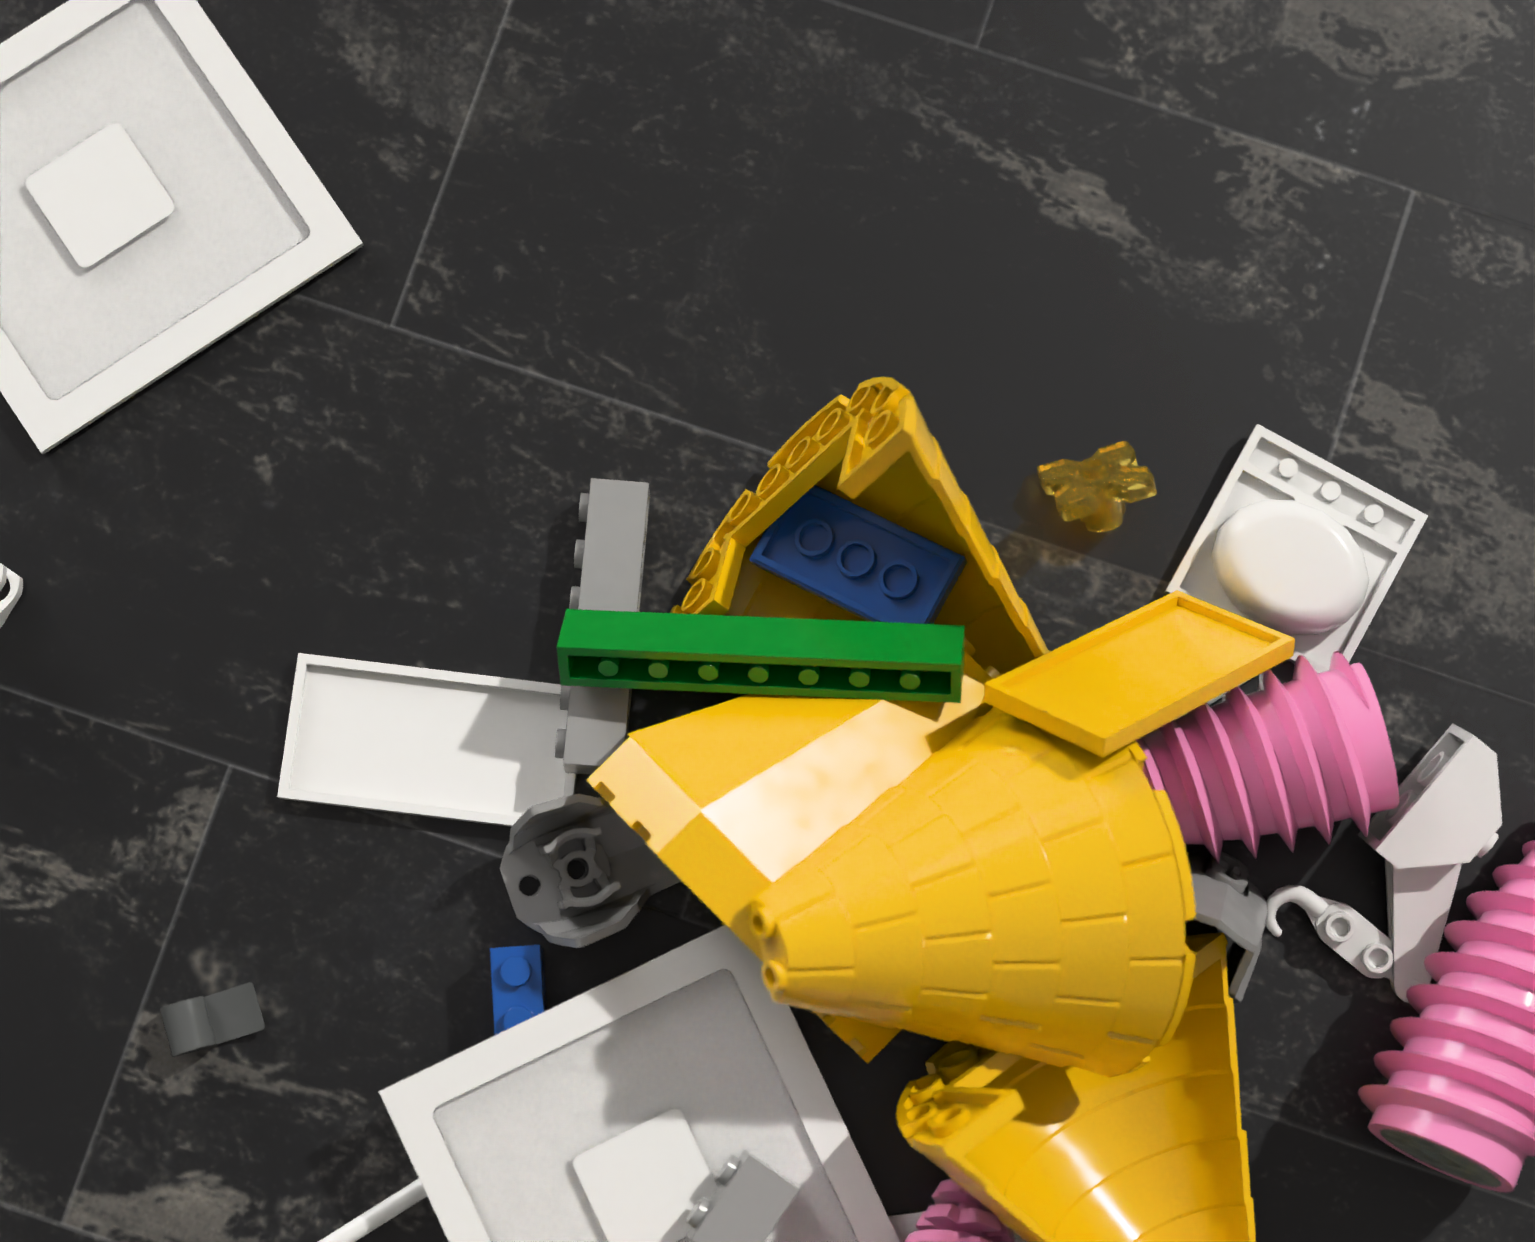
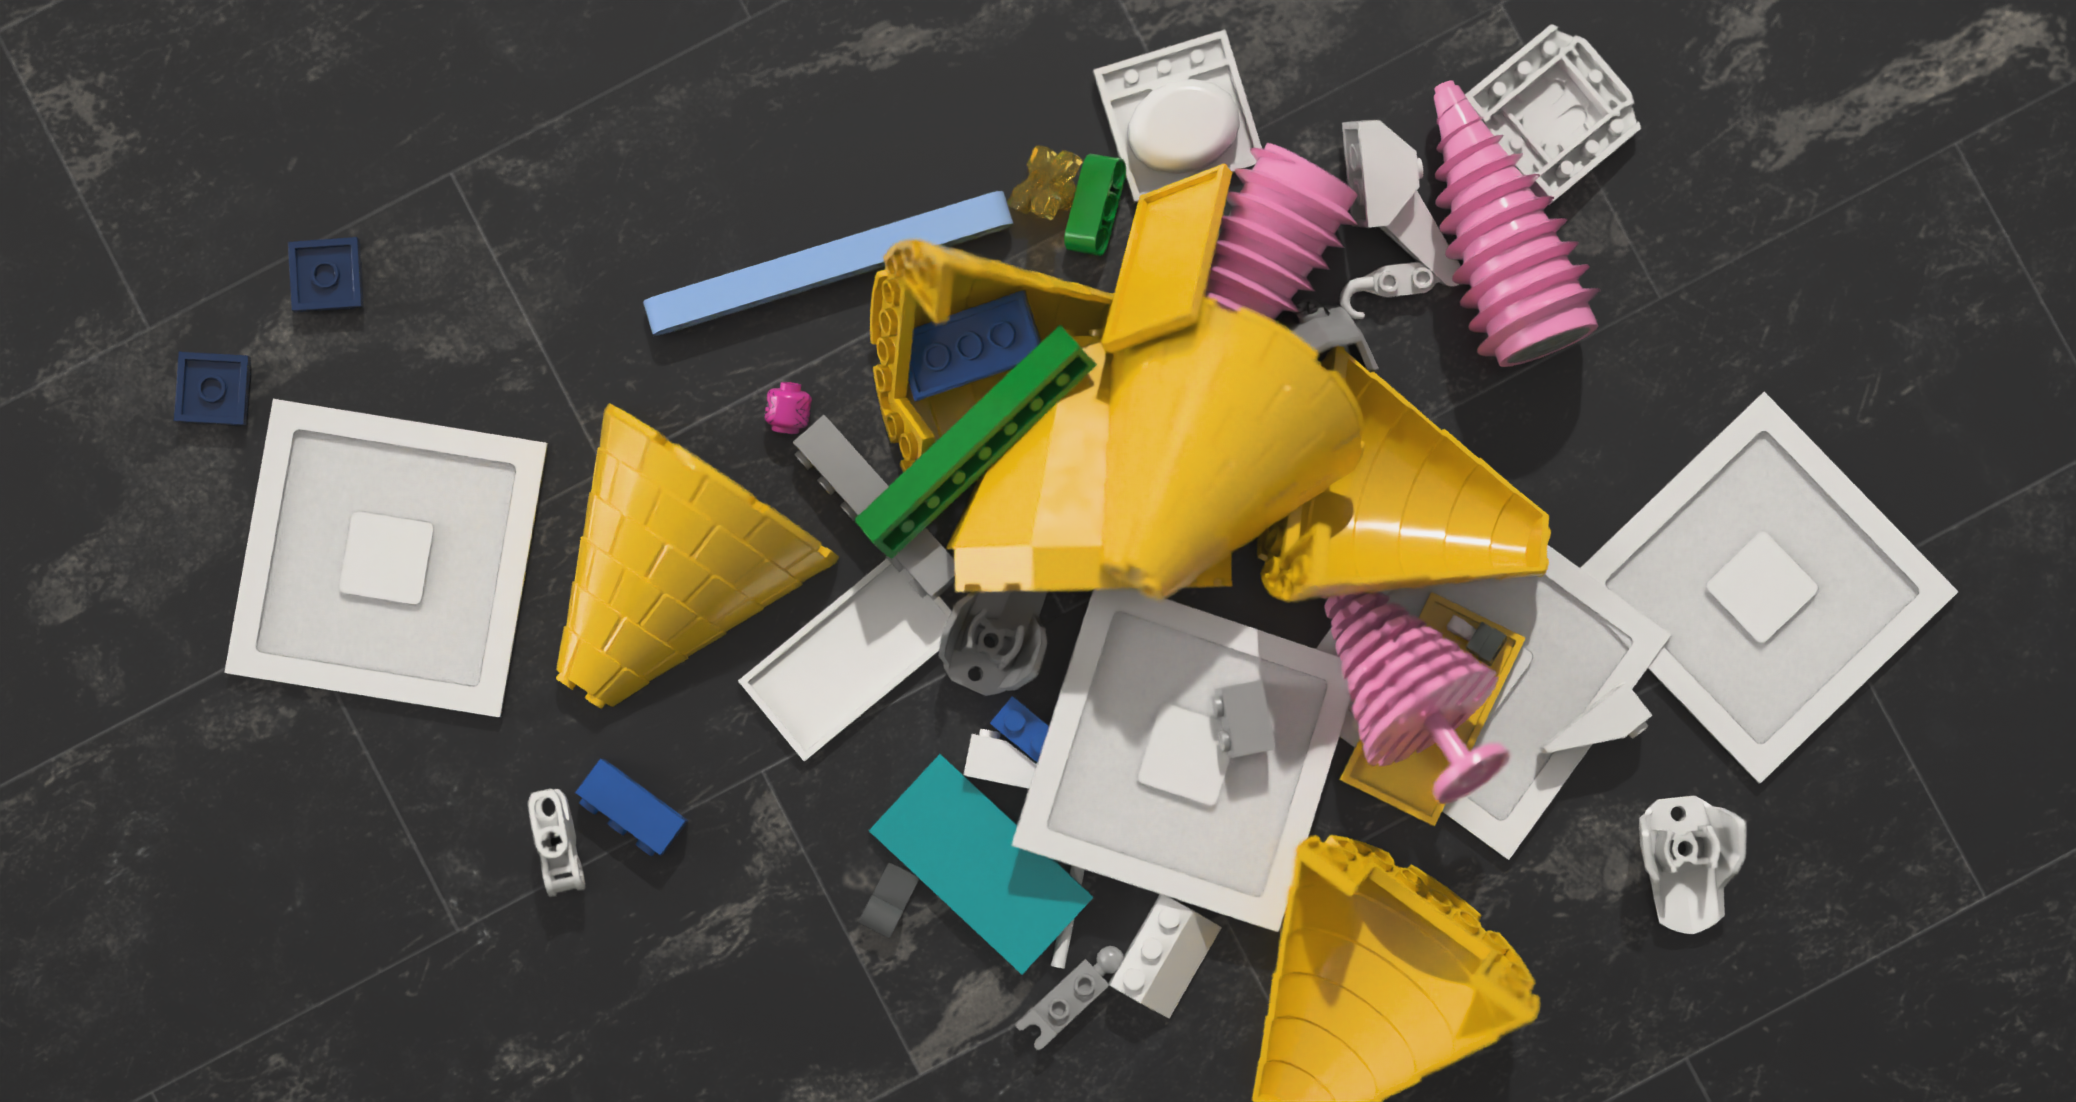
camera: 50 degrees left, 5 degrees up
(67, 667) = (630, 808): none -> blue brick
(332, 1040) = (967, 858): none -> teal tile
(351, 473) = (668, 562): none -> yellow cone
(460, 993) = (998, 761): none -> white slope
(622, 443) = (787, 408): none -> dark pink head
(800, 341) = (823, 263): none -> light blue beam
(1124, 553) = (1095, 204): none -> green beam

